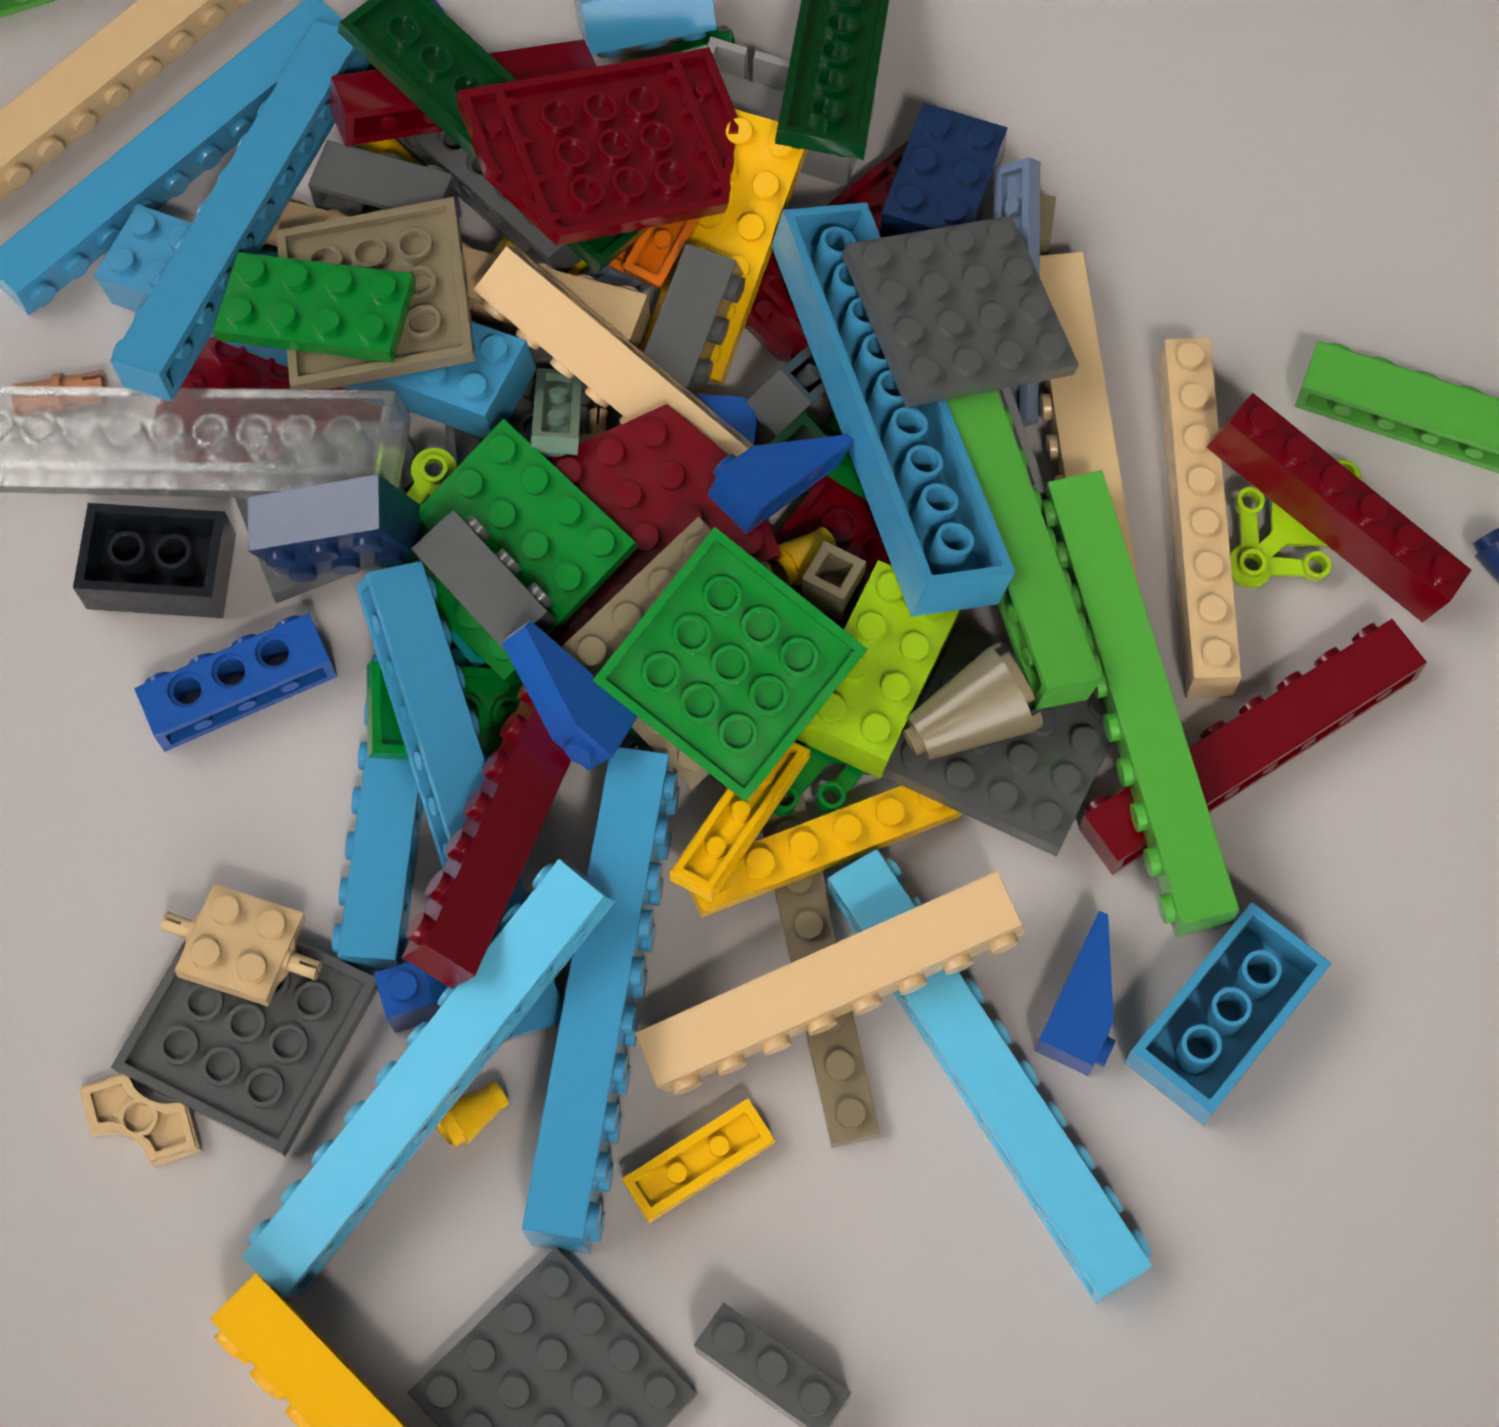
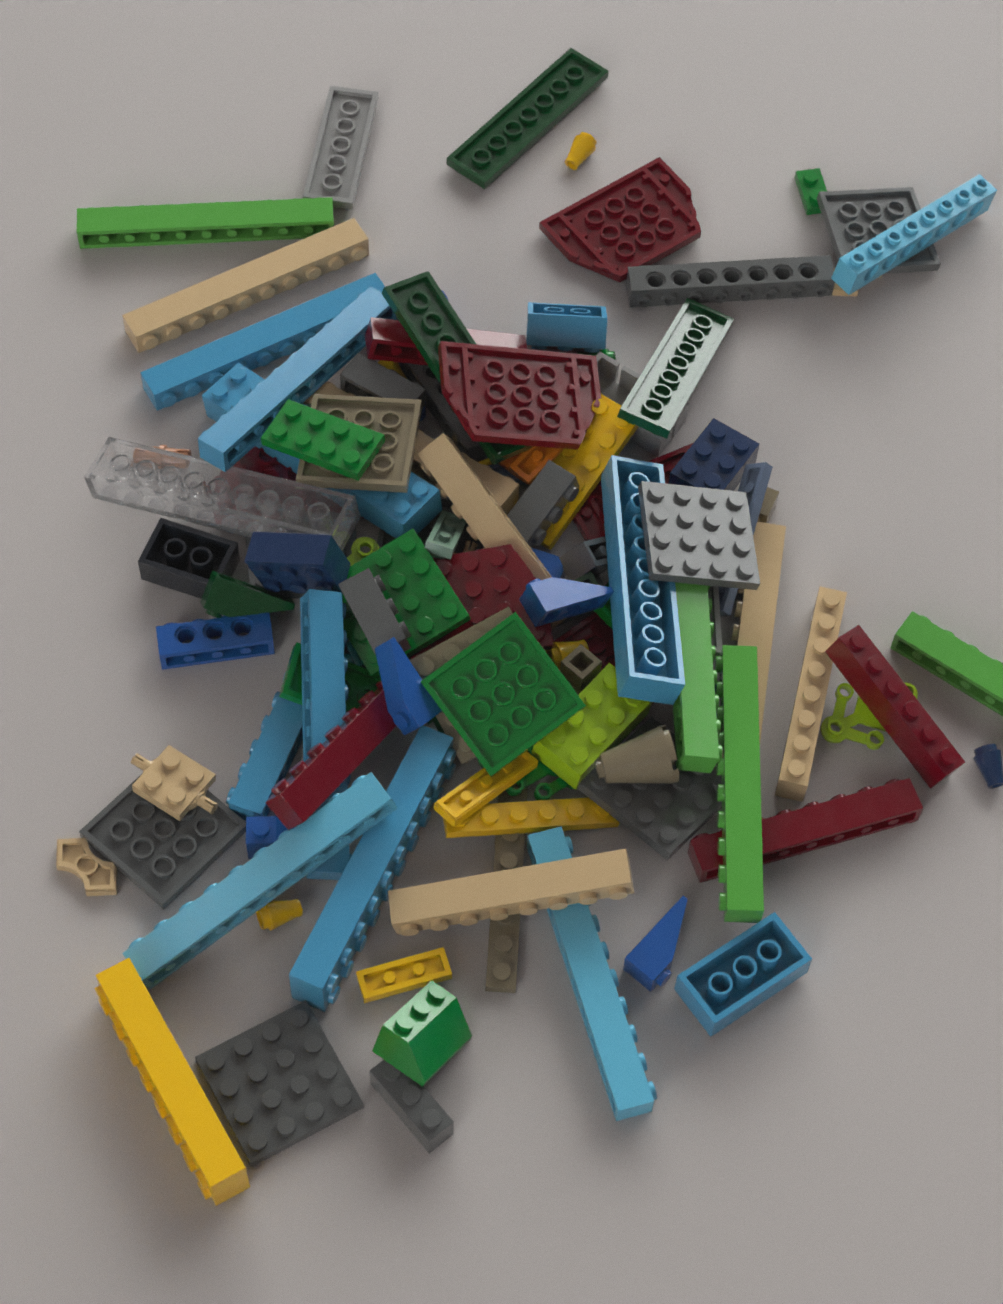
camera: 10 degrees right, 10 degrees down
(252, 607) = (237, 598): none -> dark green slope
(762, 1260) = (424, 1034): none -> green slope

